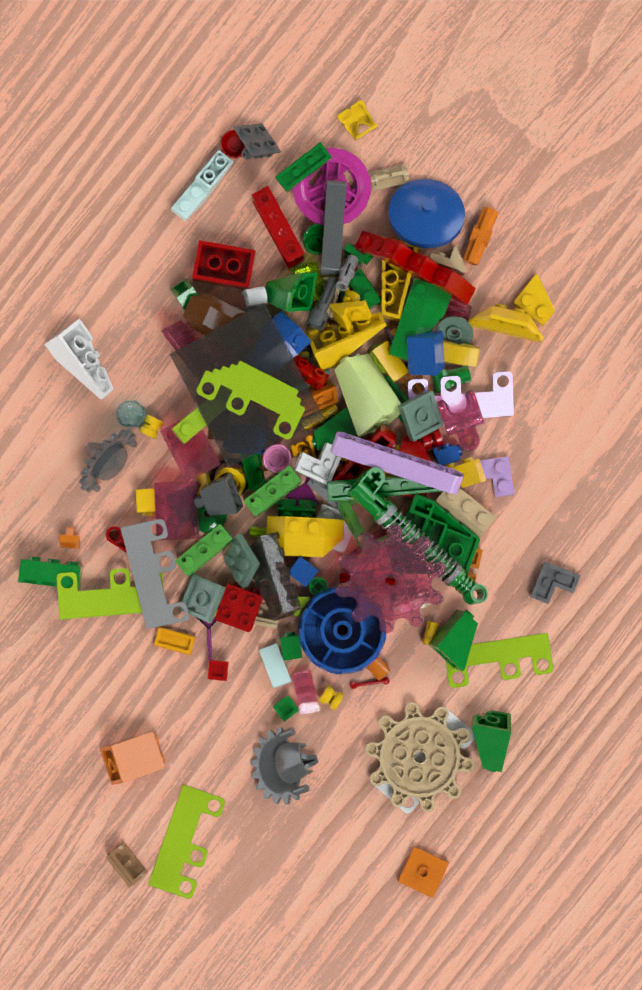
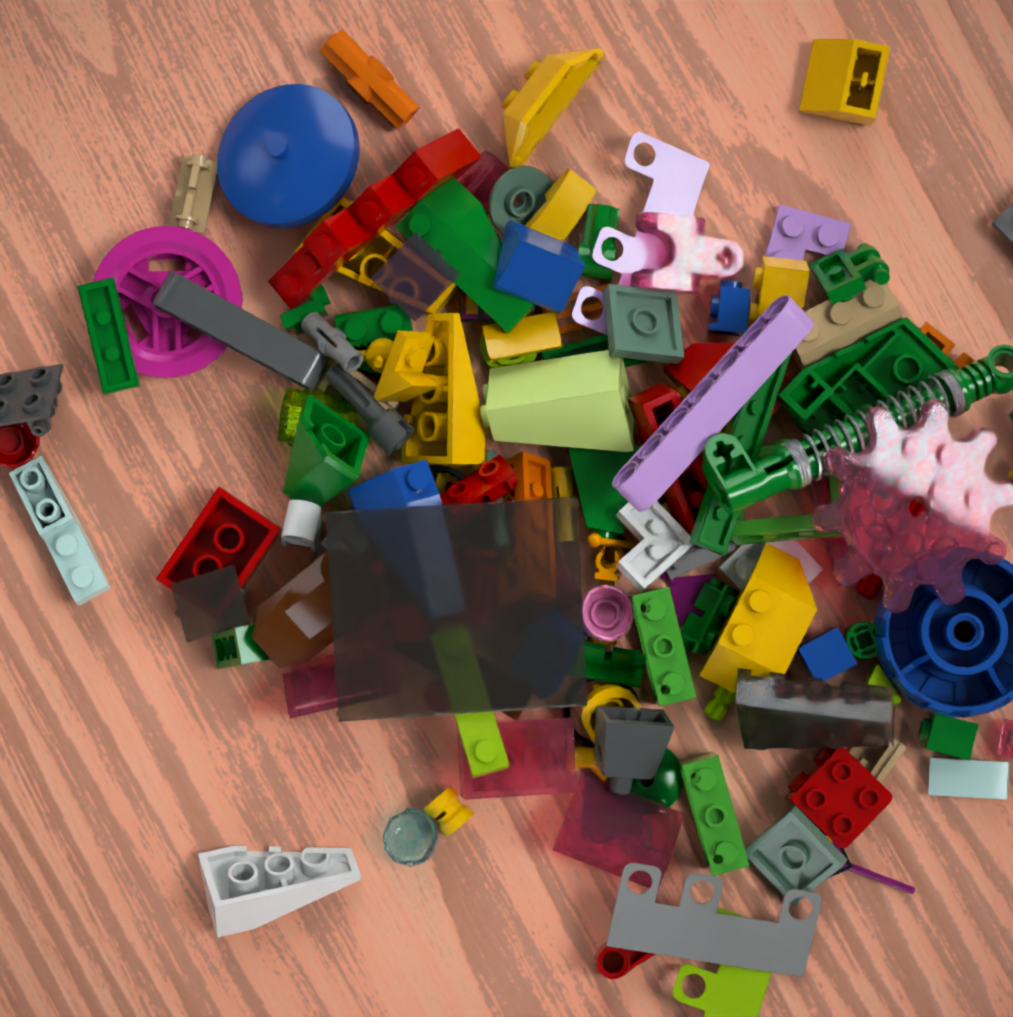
camera: 65 degrees left, 0 degrees up
(106, 459) = (473, 918): dark grey piece -> none
(145, 501) = (578, 879): yellow brick -> none
(174, 640) = (845, 937): light orange tile -> none
(198, 270) = (210, 603): none -> clear smoke piece
(218, 670) = (934, 883): red tile -> none
(241, 561) = (761, 756): sand green plate -> none
(259, 387) = (464, 592): lime piece -> none
(278, 227) = (195, 428): red fence -> none
(313, 239) = (243, 375): green hair -> none
(354, 117) = (58, 205): yellow piece -> none
(395, 297) = (415, 276): none -> piece
(428, 442) = (693, 314): red wheel -> none
(454, 263) = (397, 148): tan slope -> none
(488, 499) = (844, 274): none -> green plate
(535, 301) = (527, 35): yellow wing -> none
(581, 460) = (844, 79): none -> yellow slope

